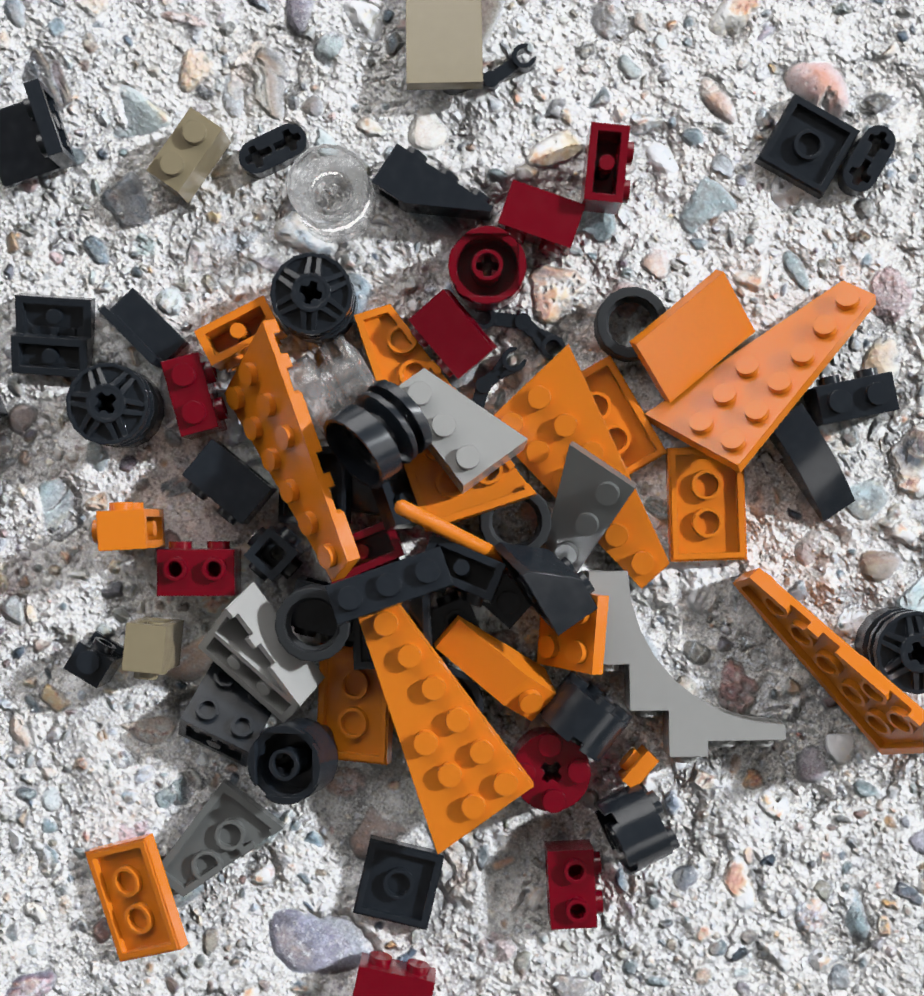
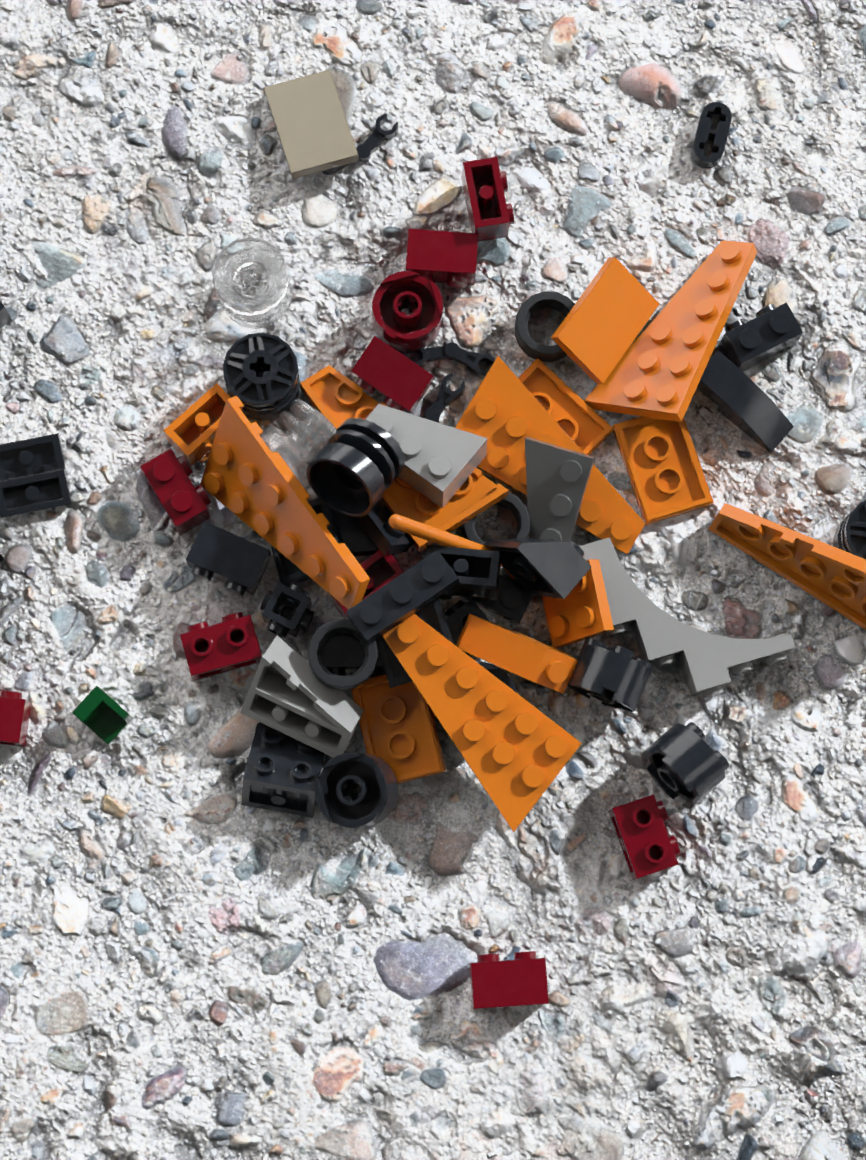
camera: 20 degrees left, 10 degrees down
(63, 604) = (102, 715): none -> dark green panel
(95, 659) = (148, 753): black brick -> none
(128, 527) = (149, 621): orange brick -> none
(136, 412) = (113, 537): black wheel -> none
(136, 898) = (244, 964): orange tile -> none
(144, 328) = (113, 446): black panel -> none
(152, 646) = (199, 721): dark tan brick -> none
(189, 155) = (114, 284): dark tan brick -> none
(217, 836) = (303, 889): dark grey wing -> none
(269, 143) = (182, 256): black beam -> none
(398, 882) = (484, 885): black tile -> none
(422, 189) = (330, 259): black slope -> none
(552, 790) = (612, 727): dark red brick -> none
(636, 765) = (670, 711): orange plate -> none
(807, 146) = (656, 136): black tile -> none

